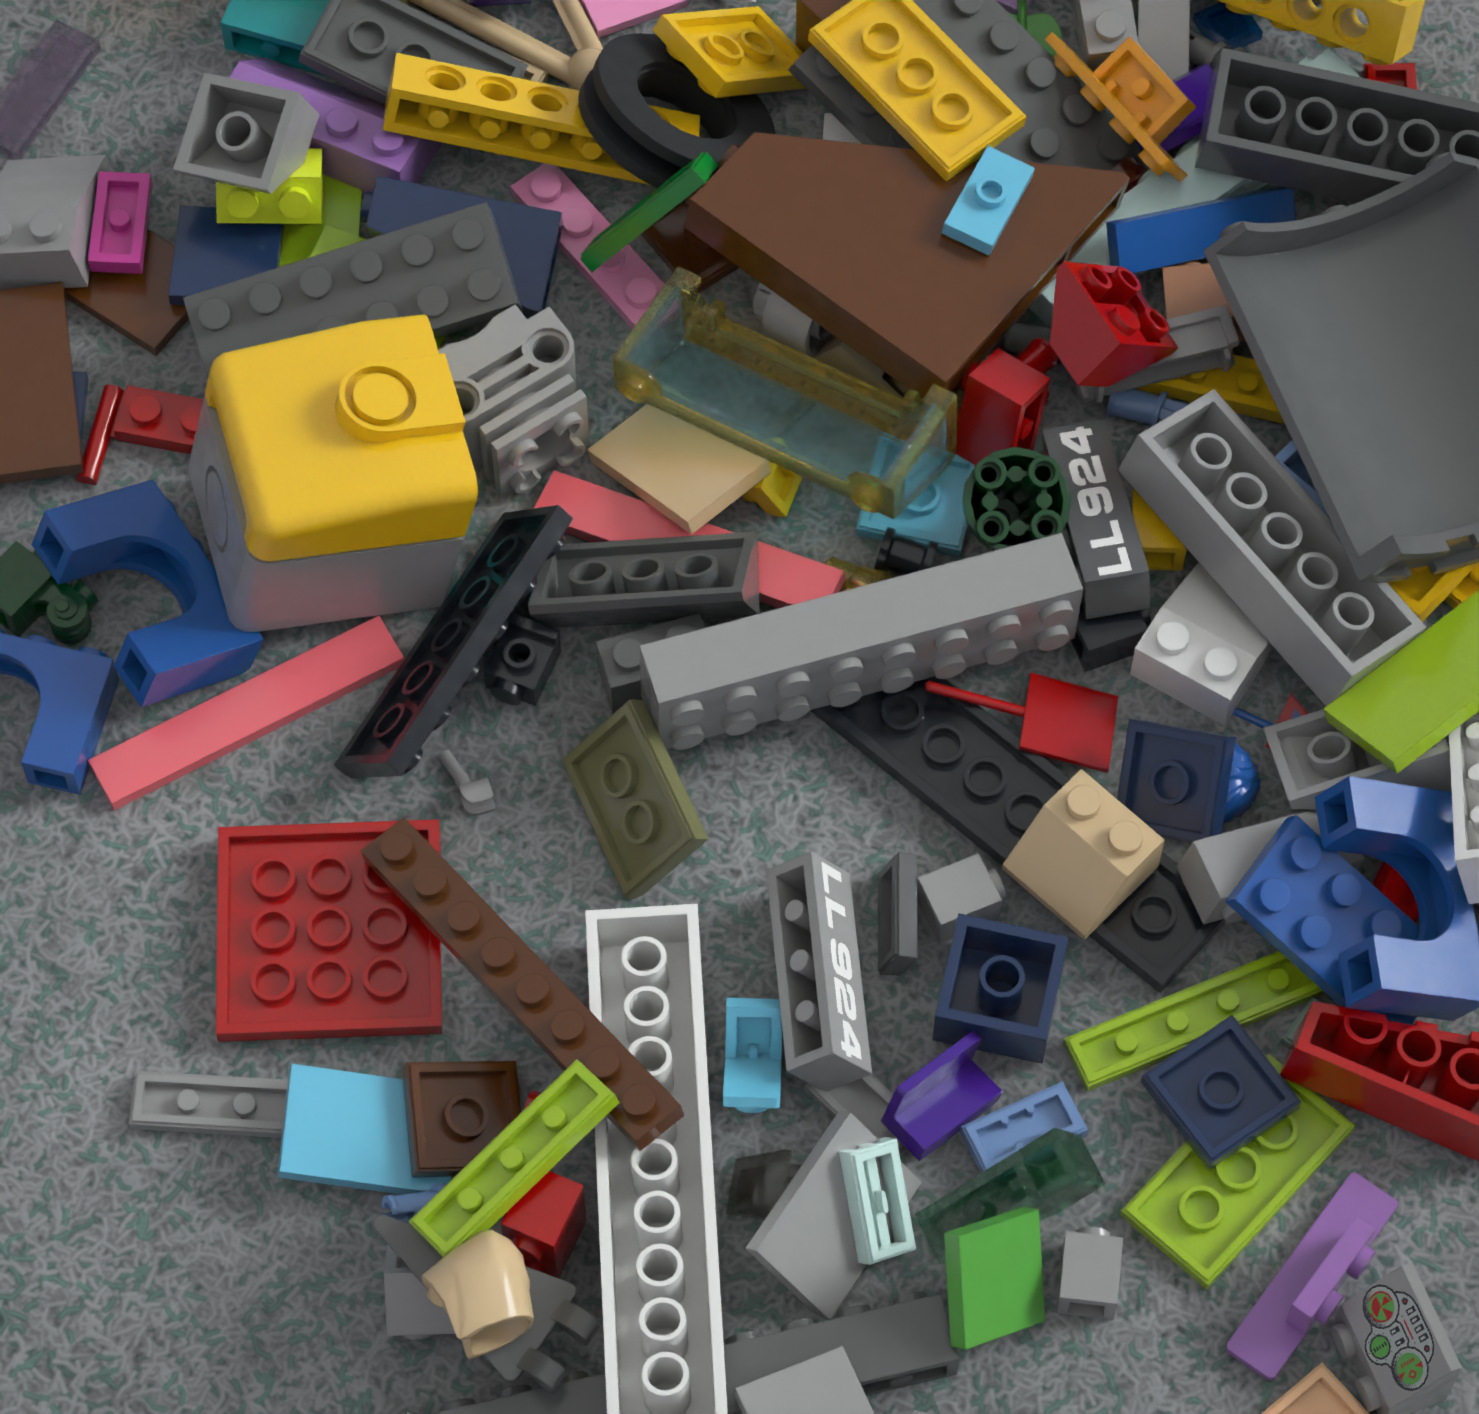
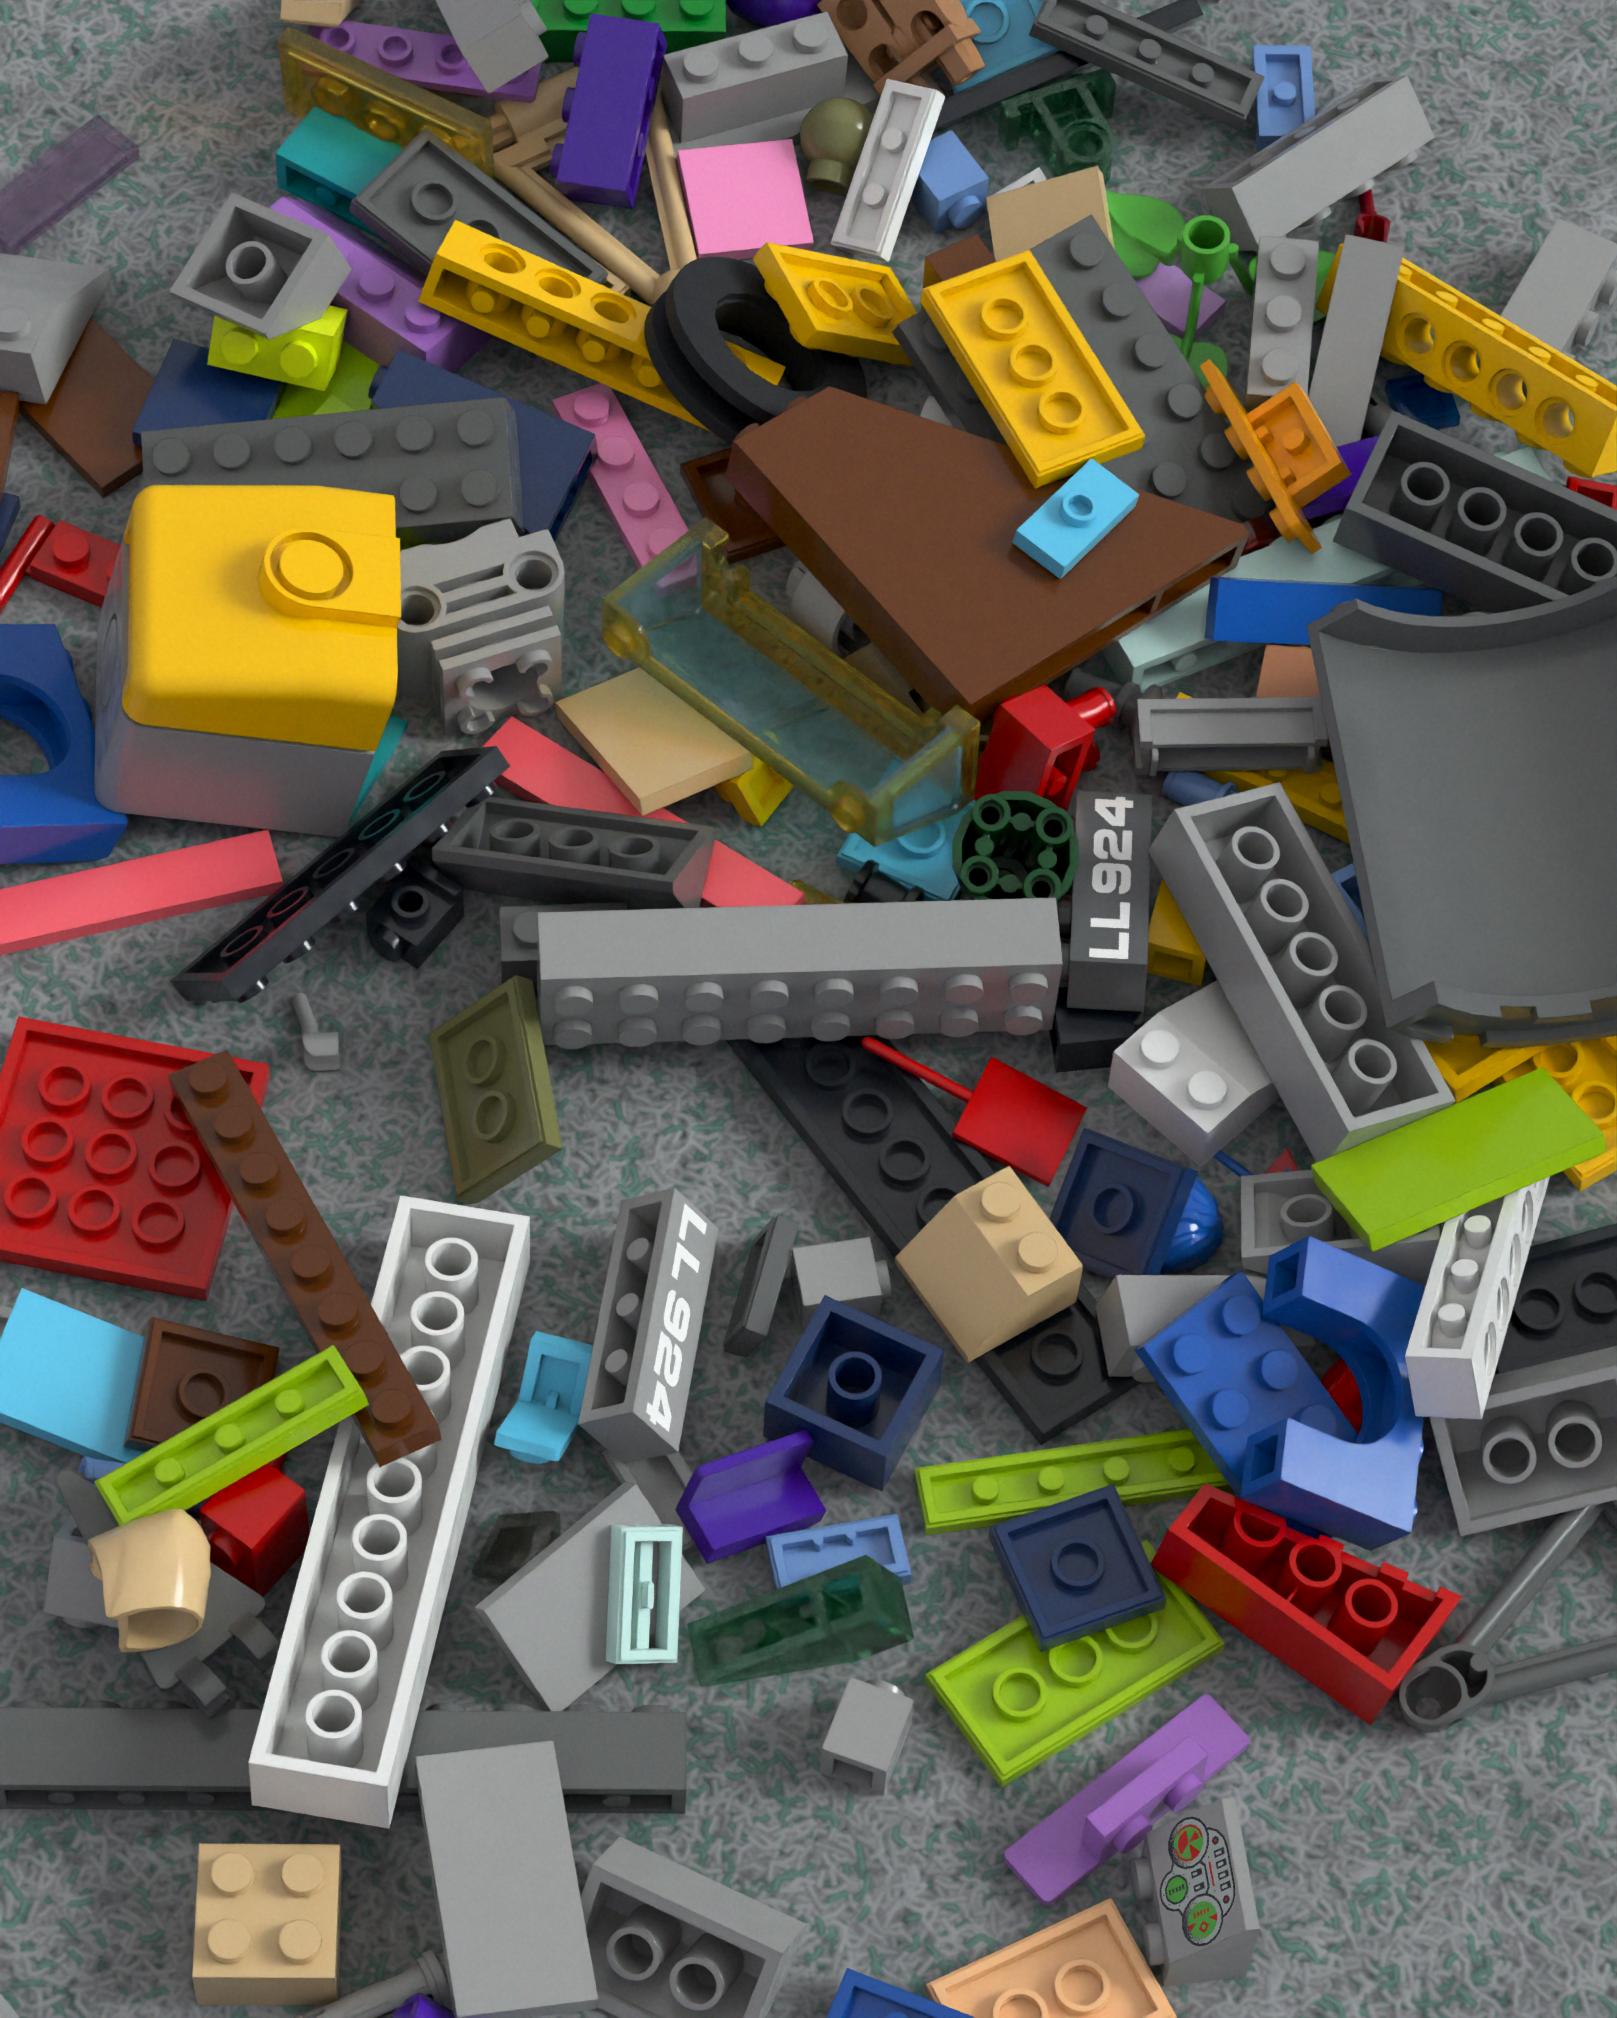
camera: 10 degrees right, 5 degrees down
(120, 222) = (101, 342): dark pink plate -> none
(648, 211) = (689, 451): green tile -> none
(994, 1277) = (751, 1707): bright green tile -> none
(1105, 324) = (1173, 684): red slope -> none

